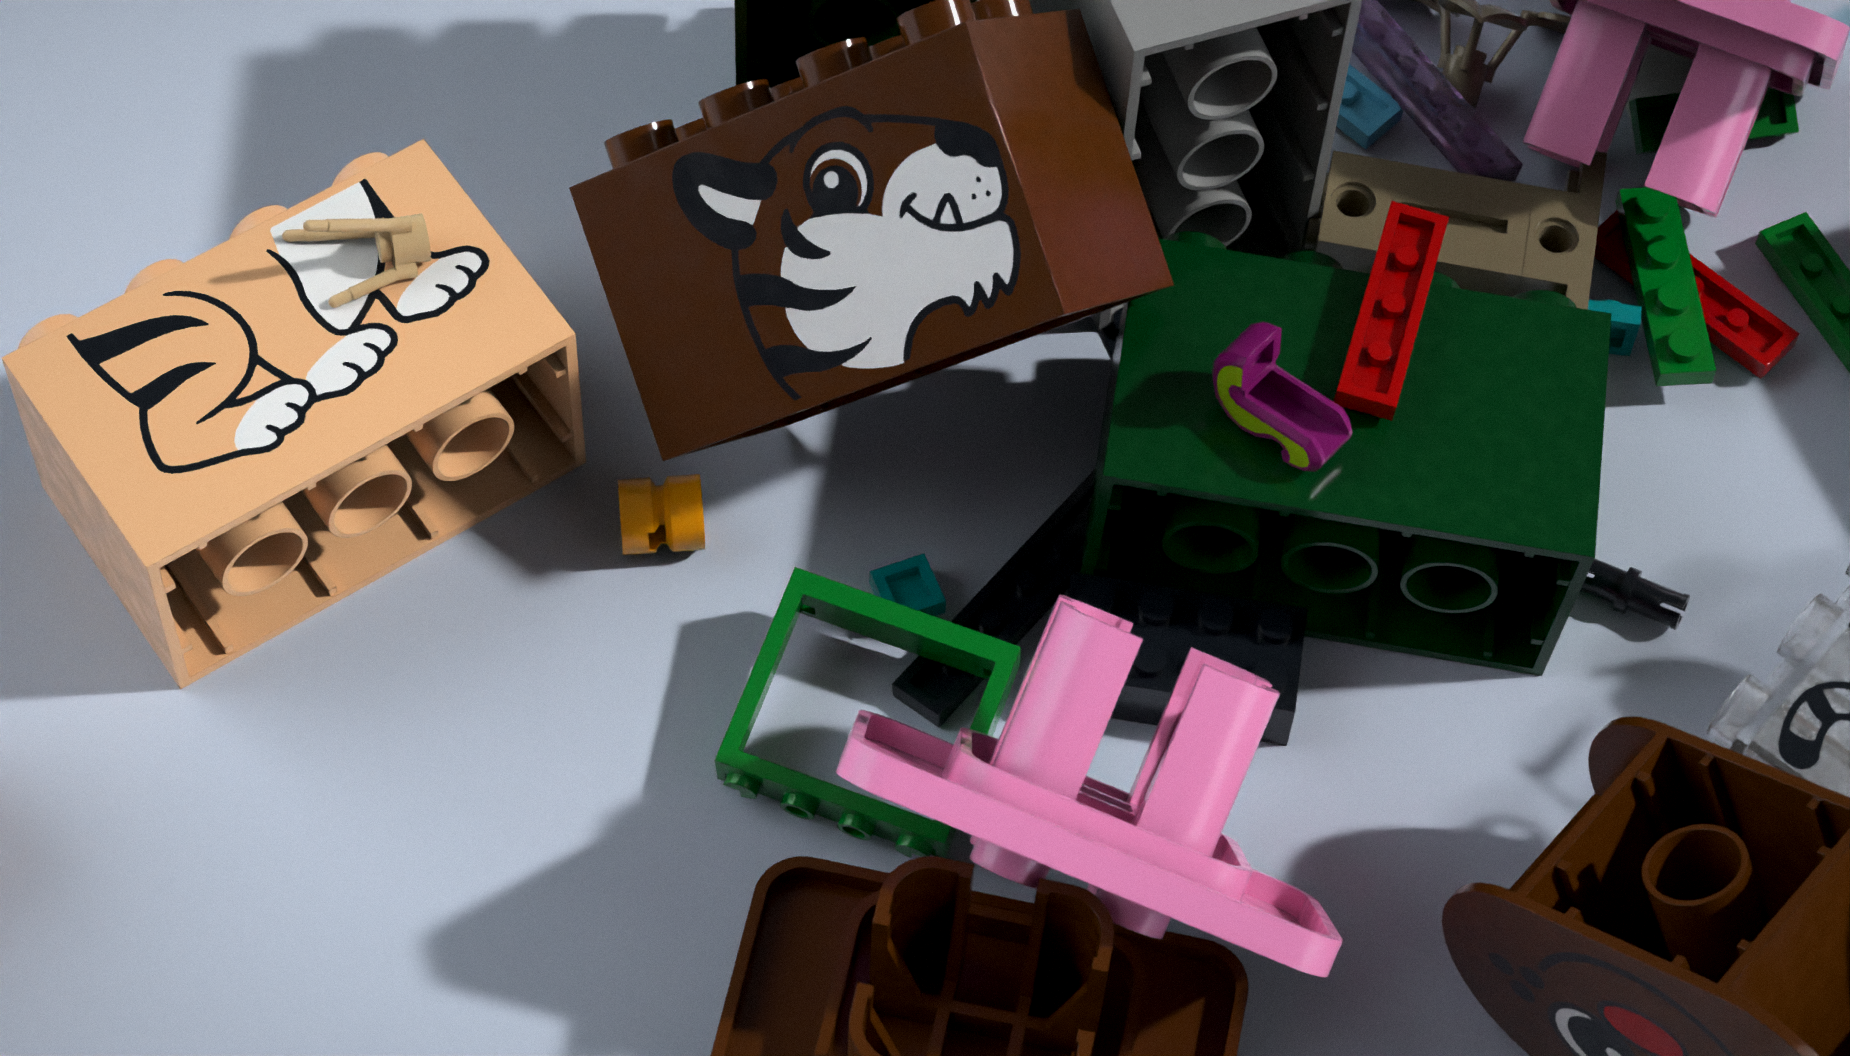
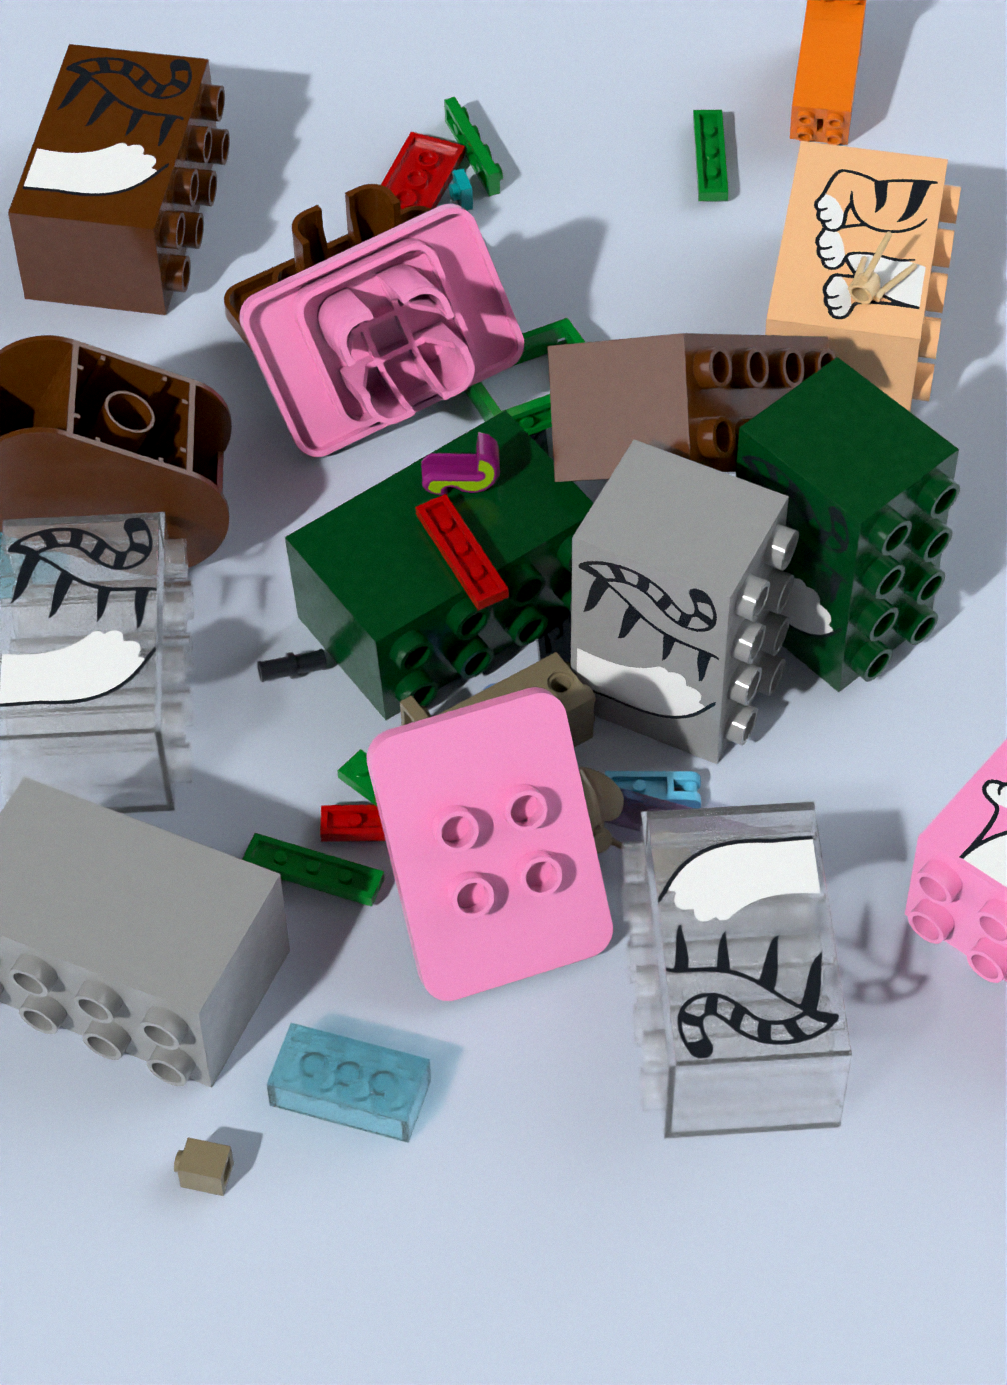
camera: 140 degrees right, 5 degrees down
(135, 902) = (710, 155): none -> green plate

